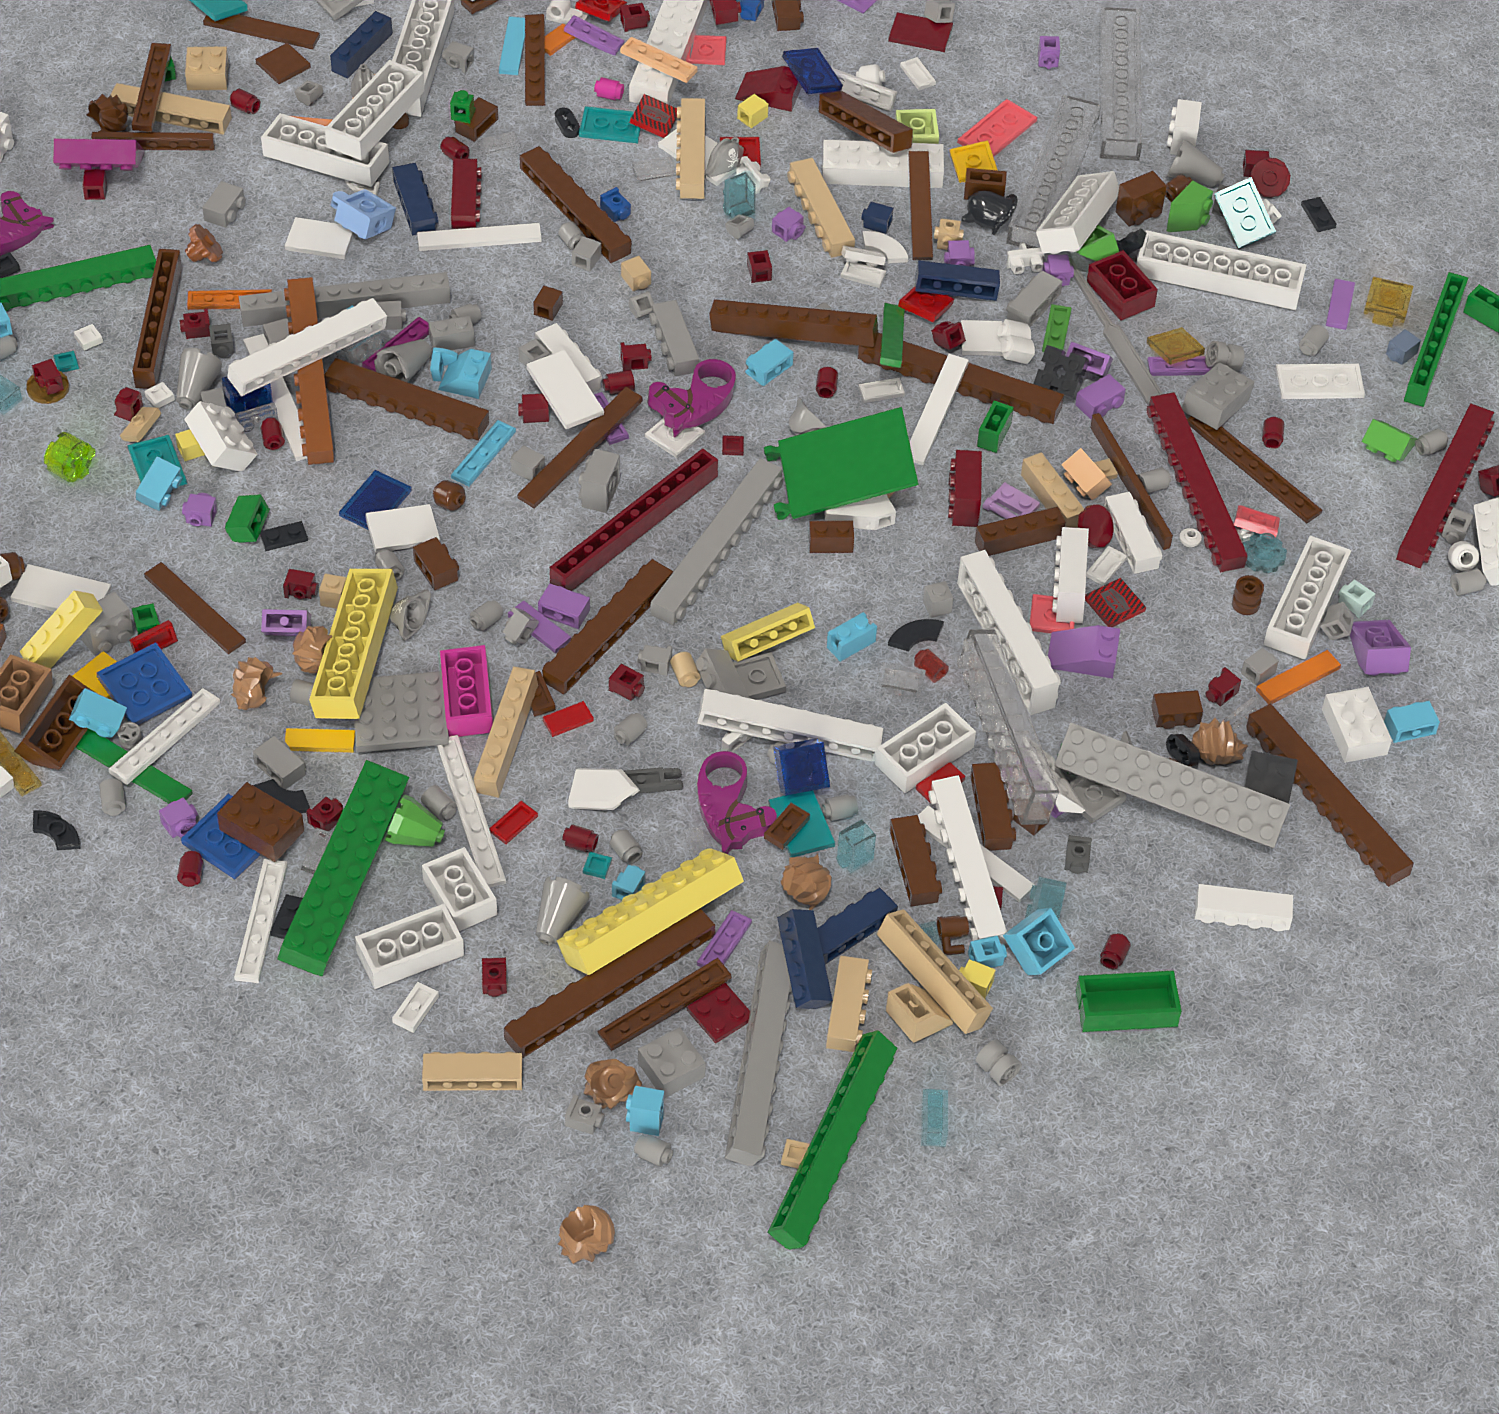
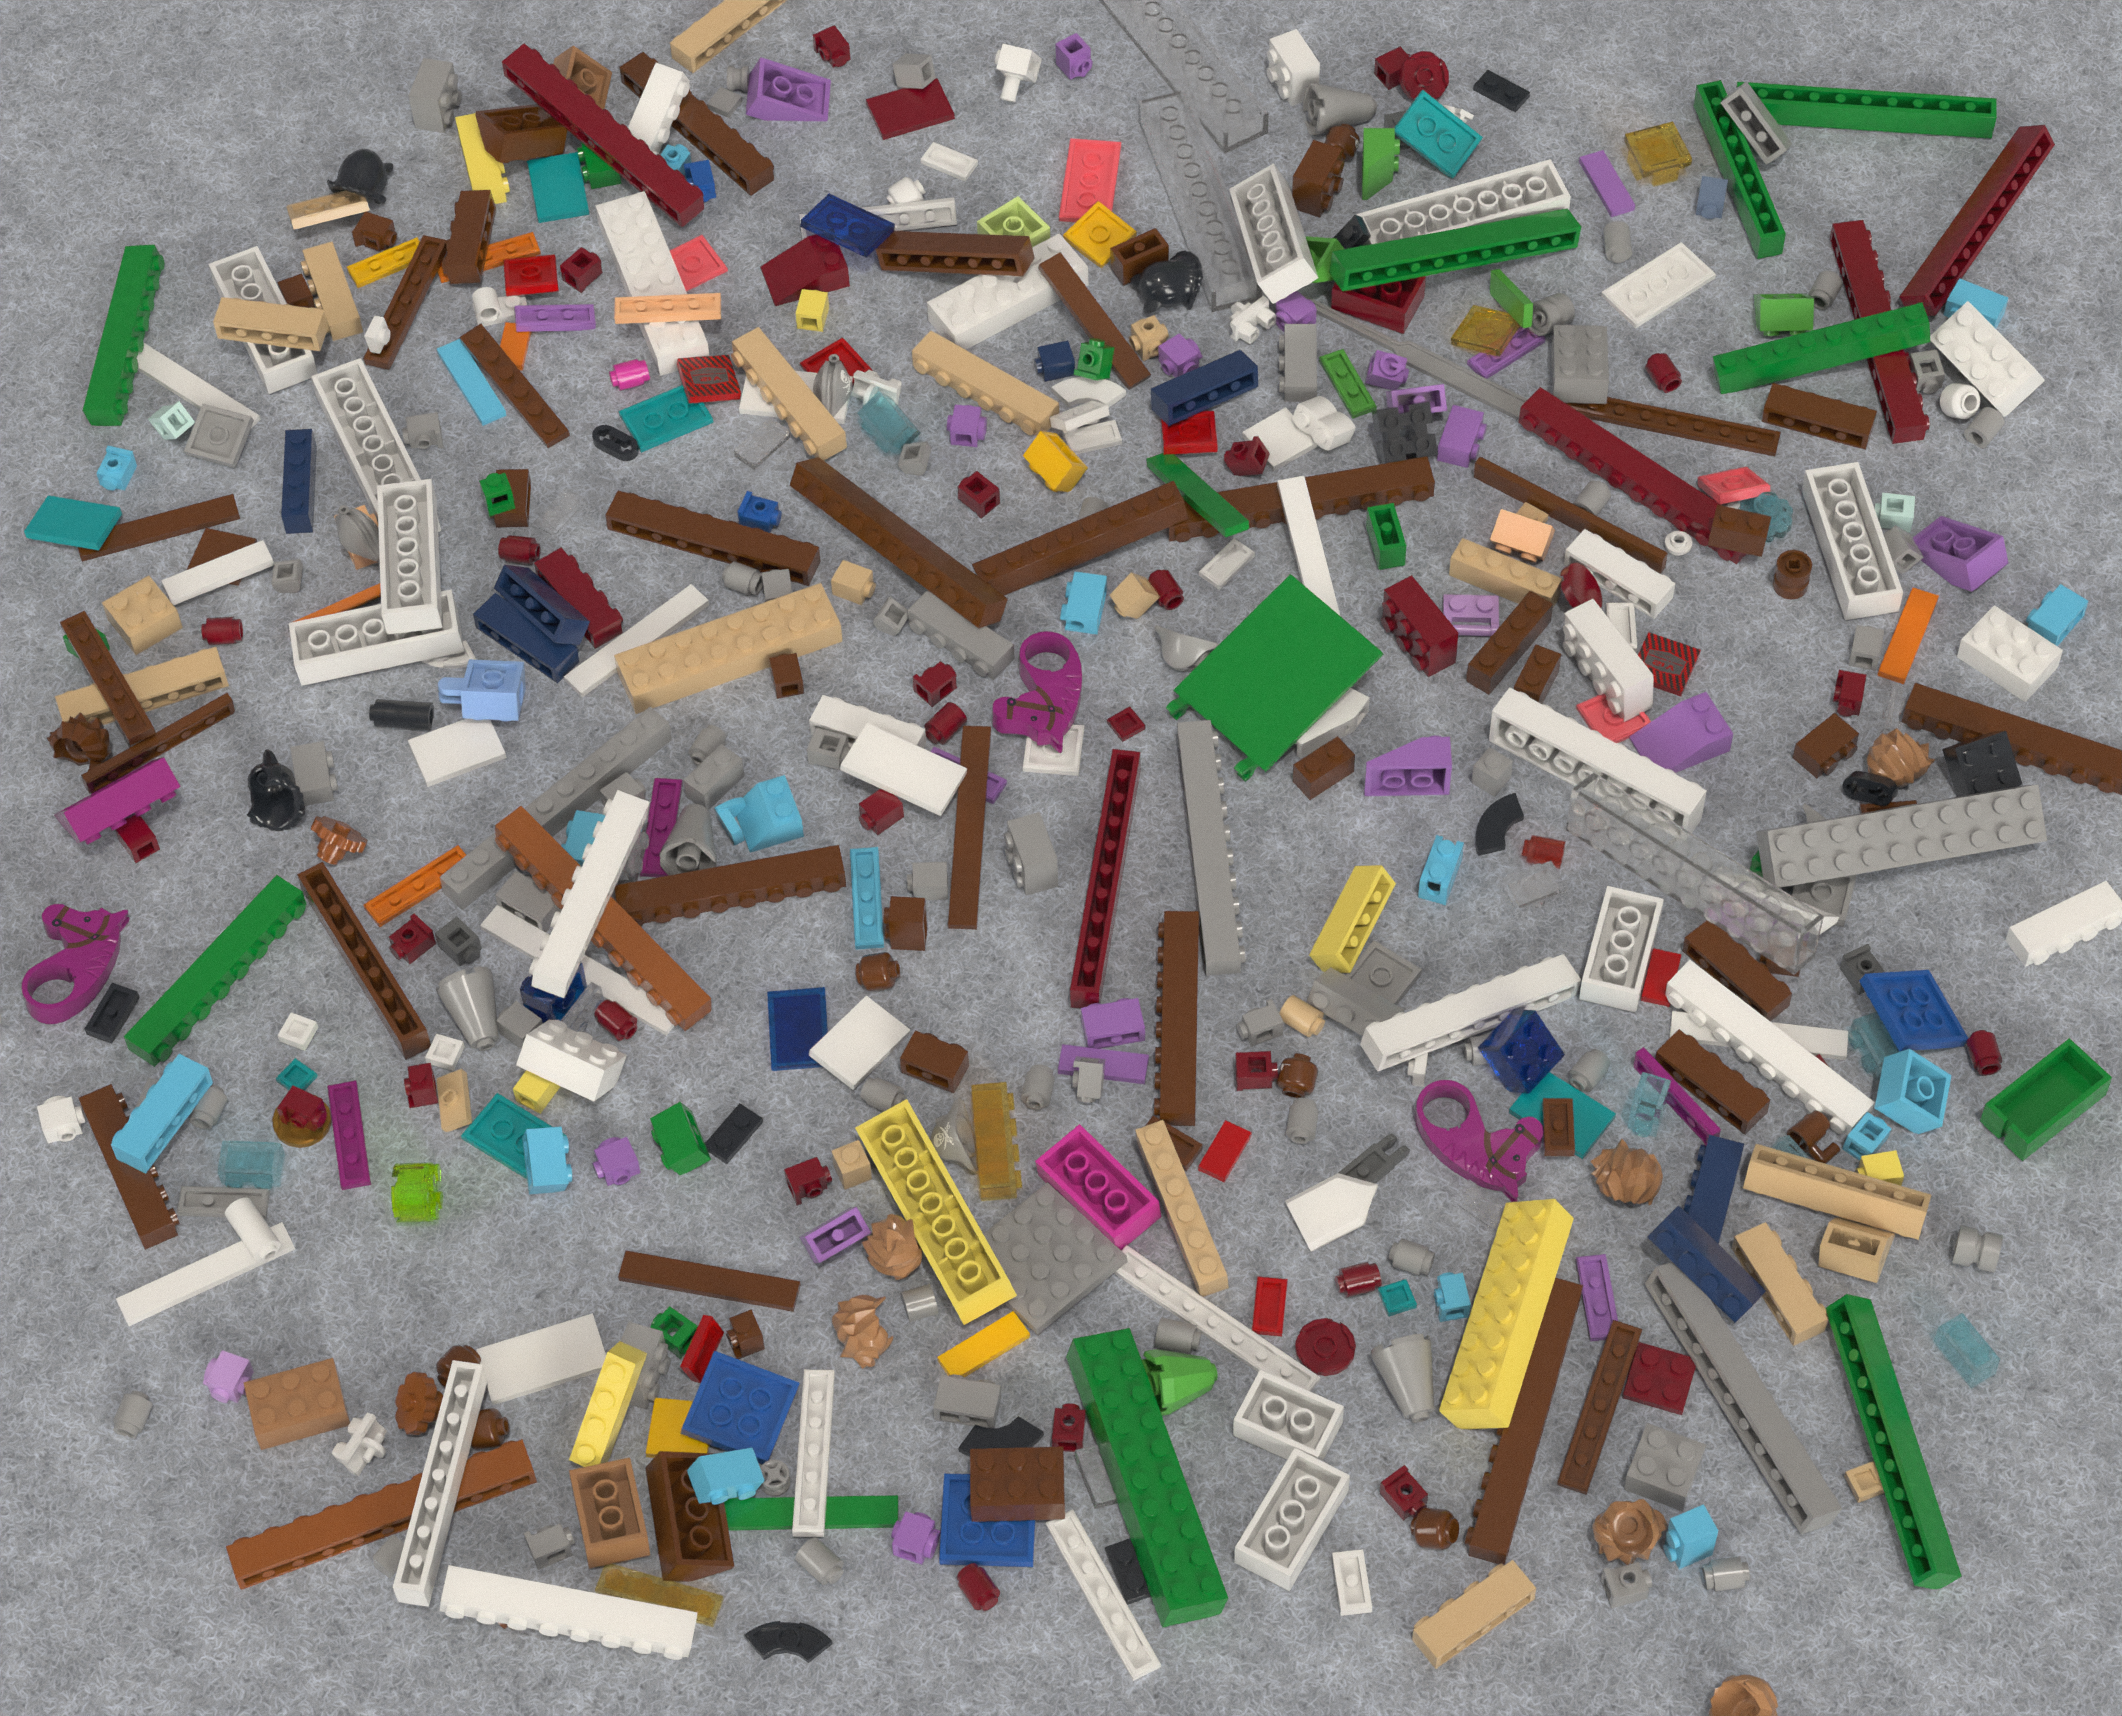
camera: 30 degrees left, 5 degrees up
(66, 409) = (349, 1135): none -> magenta tile
(185, 646) = (745, 1335): none -> reddish brown brick
(188, 204) = (274, 795): none -> black hair
(270, 68) = (217, 572): none -> white tile
(304, 201) = (402, 714): none -> black brick
(431, 629) = (994, 1141): none -> clear yellow brick
(435, 183) = (541, 604): none -> dark blue brick
(488, 476) = (906, 923): none -> reddish brown piece
(493, 1008) = (1435, 1528): none -> reddish brown head
(525, 873) = (1332, 1353): none -> dark red tile
(526, 268) = (727, 648): none -> tan brick
(650, 701) = (1297, 1076): none -> reddish brown head
(681, 264) = (898, 542): none -> reddish brown brick
(801, 373) = (1134, 596): none -> tan brick
(823, 272) = (1054, 462): none -> yellow brick
(882, 852) = (1678, 1099): none -> magenta tile
(884, 566) = (1412, 769): none -> medium lavender slope
(901, 228) = (1095, 360): none -> green brick
(1005, 38) = (1016, 65): none -> white brick
(1019, 561) = (1539, 673): none -> reddish brown brick
(1085, 332) = (1387, 370): none -> medium lavender brick
(1086, 895) = (1914, 1010): none -> blue plate
(1192, 283) = (1454, 249): none -> green brick
(1206, 333) = (1511, 298): none -> bright green tile
(1228, 545) = (1739, 530): none -> reddish brown brick
(1356, 513) = (1819, 416): none -> reddish brown brick
(1390, 471) = (1822, 348): none -> green brick
(1469, 314) = (1756, 123): none -> light grey brick

